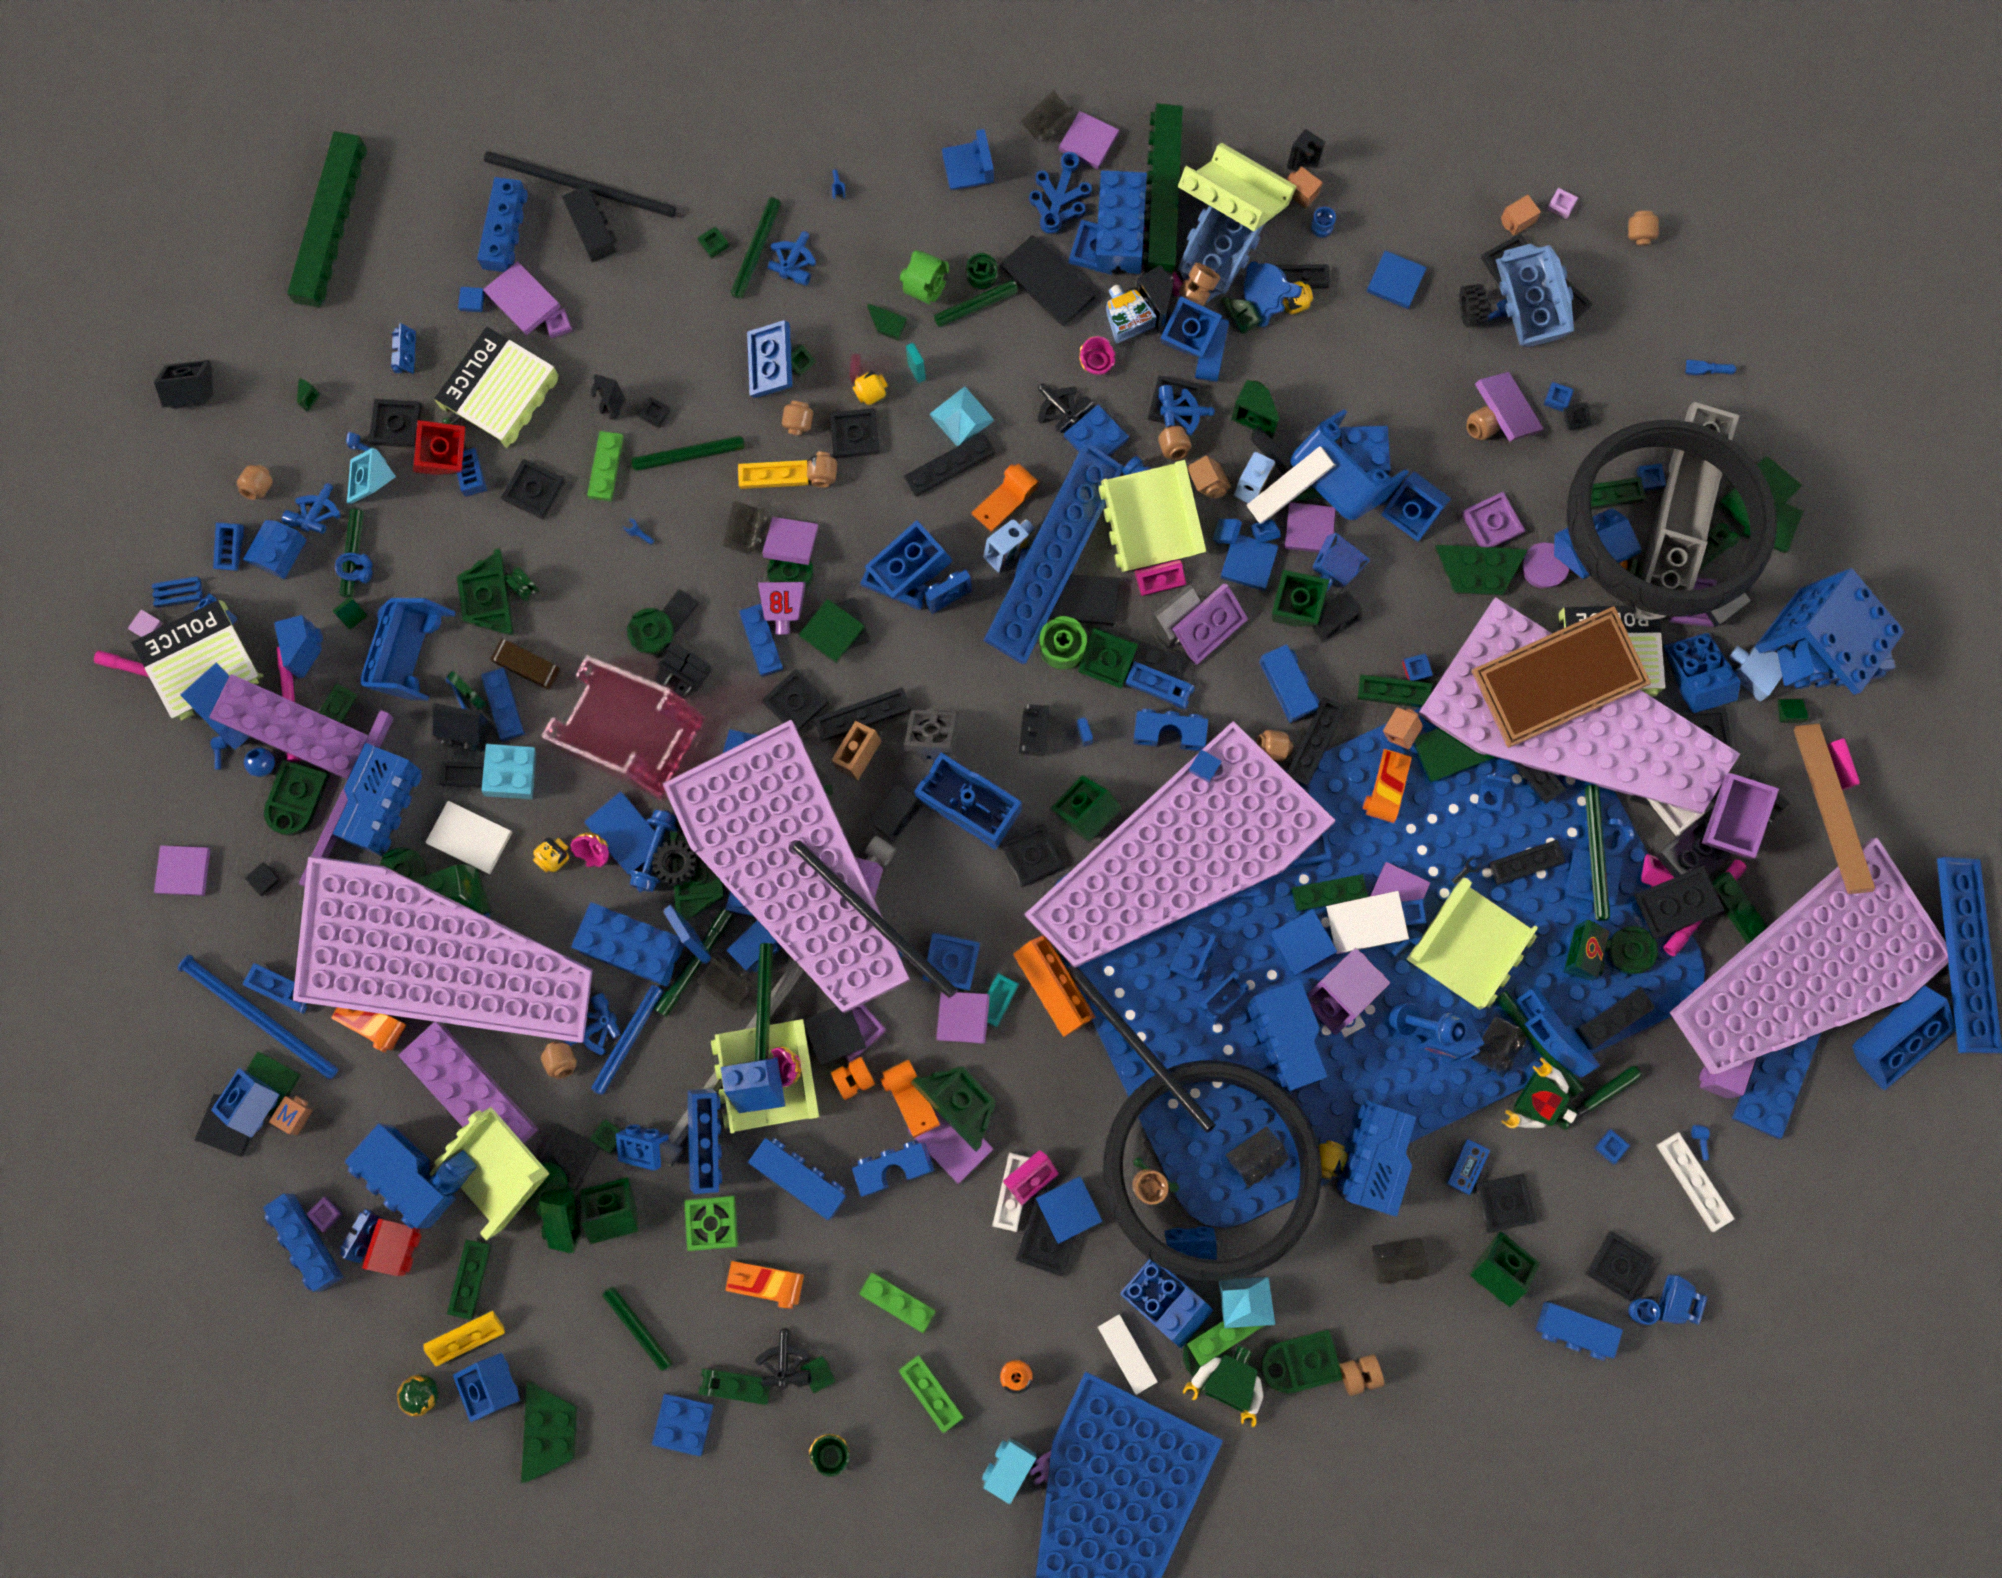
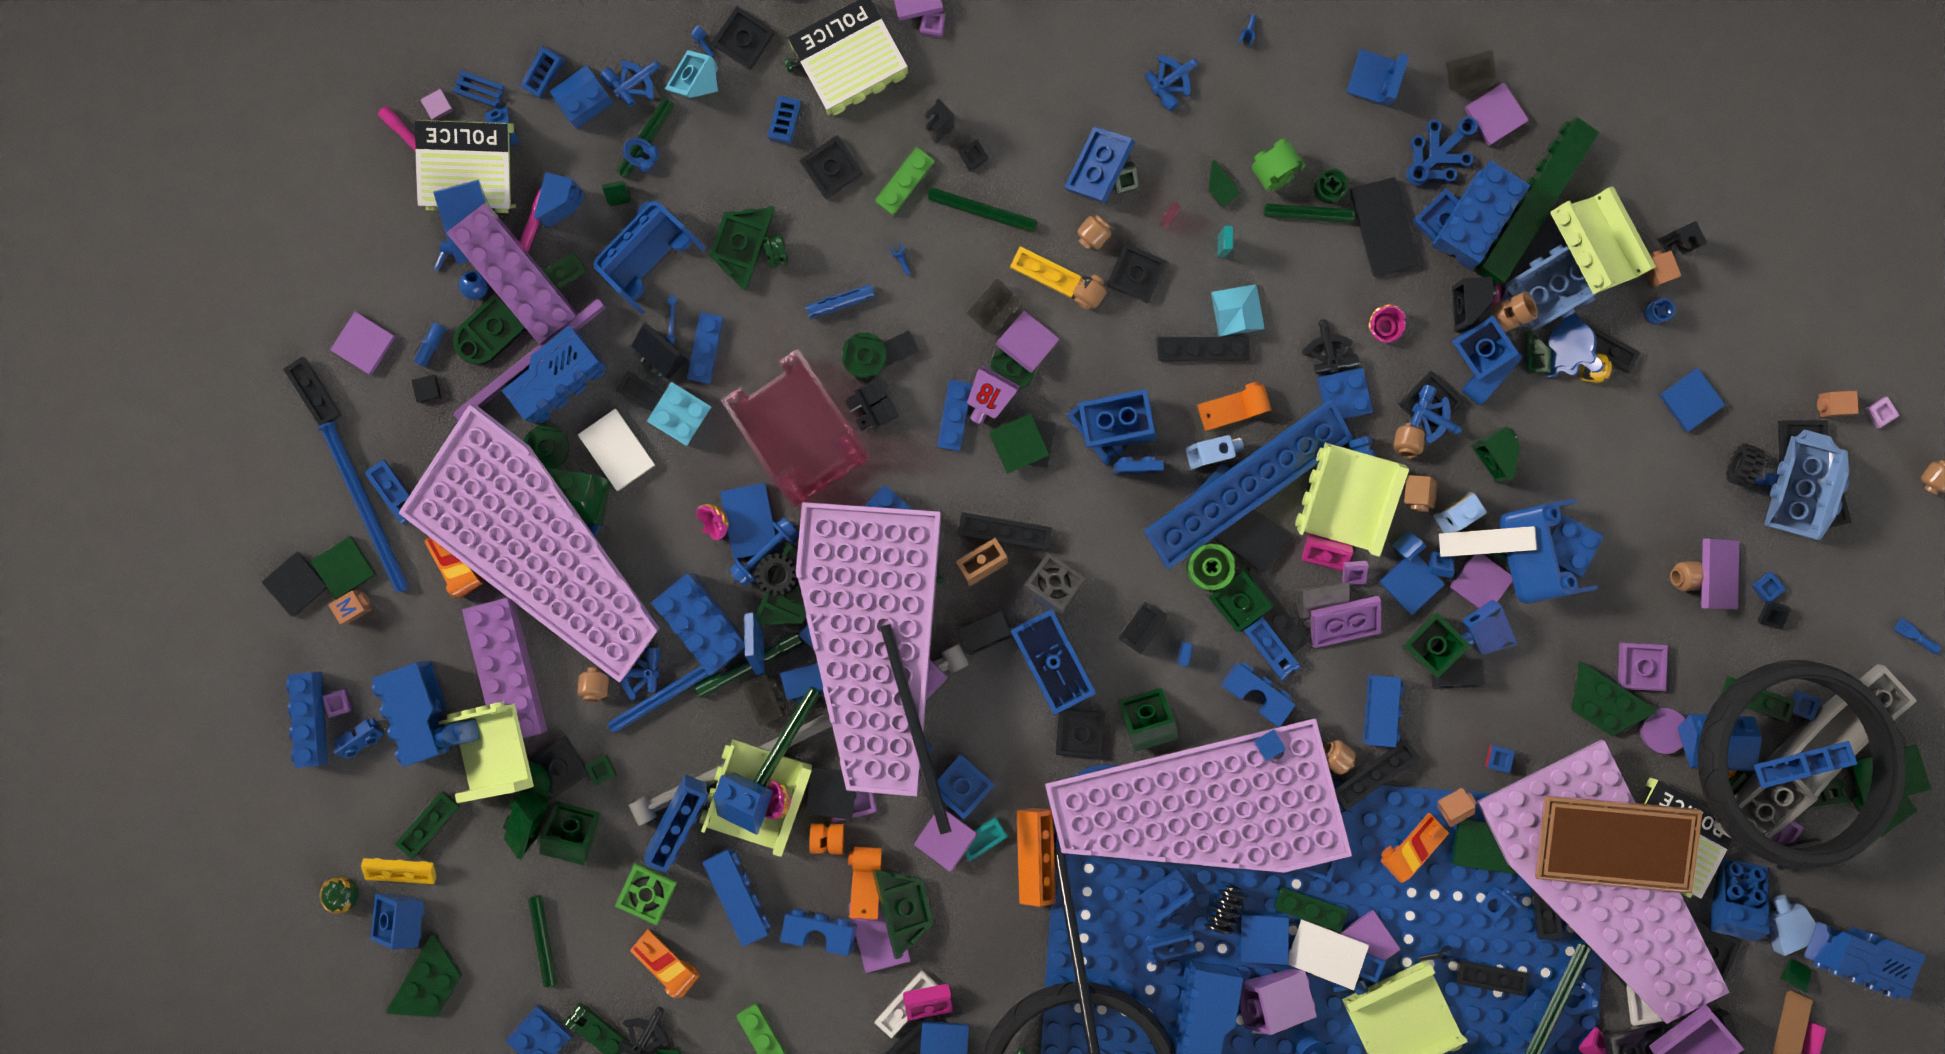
camera: 20 degrees right, 10 degrees up
(155, 938) = (312, 391): none -> black plate
(245, 837) = (429, 344): none -> blue axle
(245, 1103) = (316, 577): blue slope -> none
(254, 482) = (594, 26): medium nougat head -> none
(391, 1247) = (375, 767): red slope -> none
(438, 448) = (768, 85): red slope -> none
(466, 690) = (679, 321): dark green tile -> none
(525, 664) = (742, 324): dark brown beam -> none
(551, 854) = (677, 505): yellow head -> none
(598, 602) = (840, 301): none -> blue pin
(640, 1146) = (622, 797): blue bracket -> none
(713, 242) = (1109, 23): dark green tile -> none
(755, 248) = (1144, 50): dark green axle -> none
(795, 700) = (954, 486): black tile -> none
(870, 388) = (1173, 240): yellow head -> none
(1128, 314) = (1437, 299): torso -> none
(1195, 577) = (1355, 572): none -> medium lavender tile
(1252, 933) = (1226, 909): none -> black piece
(1271, 450) = (1489, 498): black tile -> none
(1393, 691) = (1468, 767): dark green plate -> none
(1415, 506) = (1585, 617): blue slope -> none
(1670, 510) = (1805, 764): none -> blue slope
(1841, 624) = (1887, 934): blue bracket -> none

